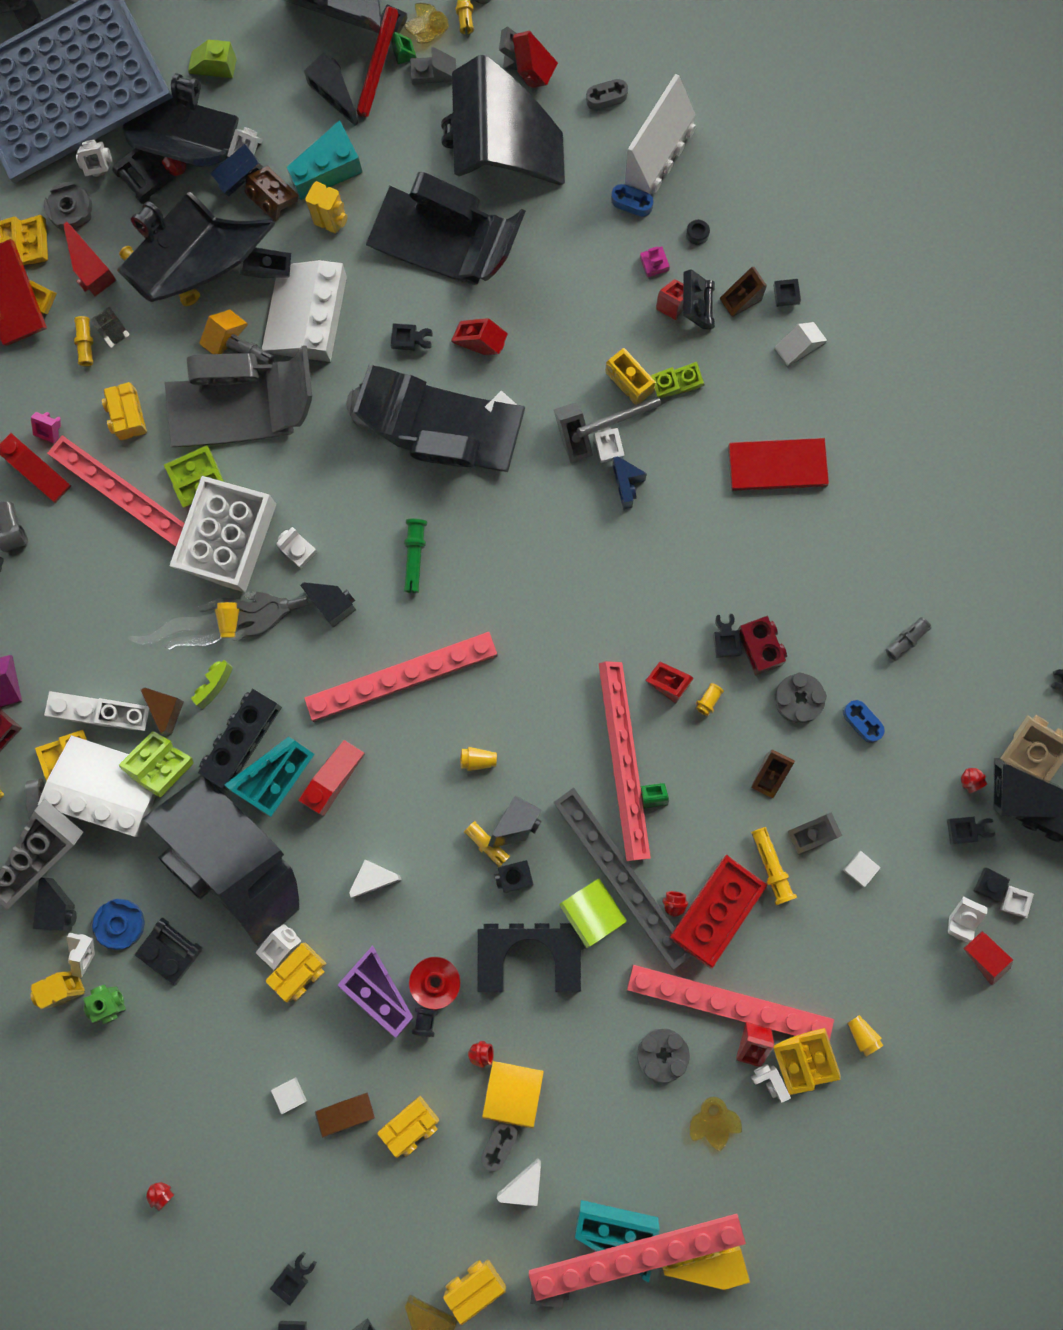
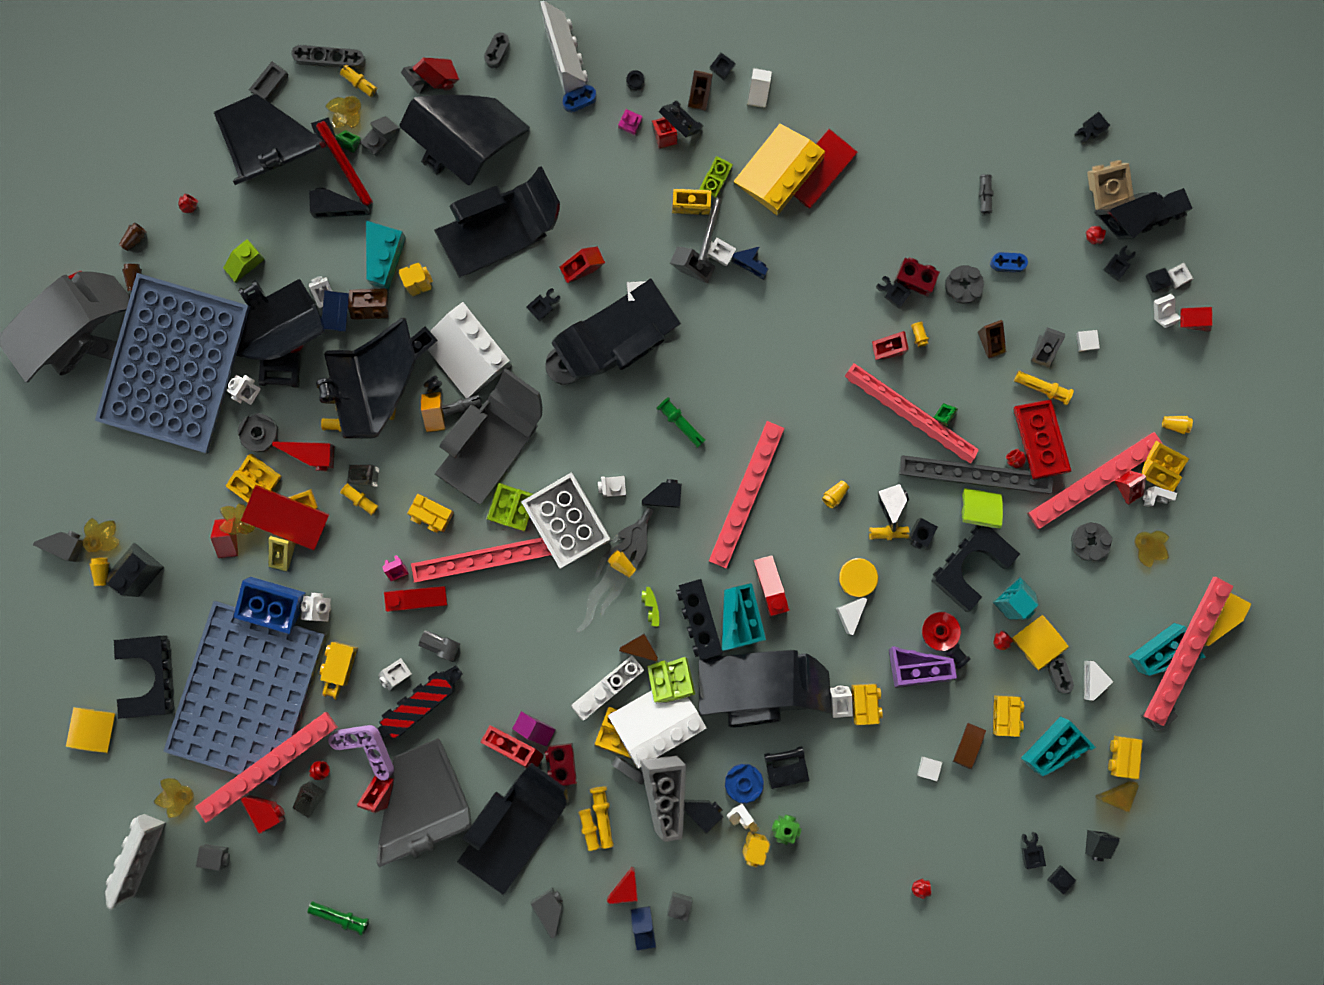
camera: 60 degrees left, 5 degrees up
(246, 309) = (432, 384): none -> black bush
(415, 854) = (858, 577): none -> yellow tile
(418, 1206) = (1057, 746): none -> teal wedge
(534, 1031) = (1017, 601): none -> teal wedge
(741, 428) = (779, 168): none -> yellow slope

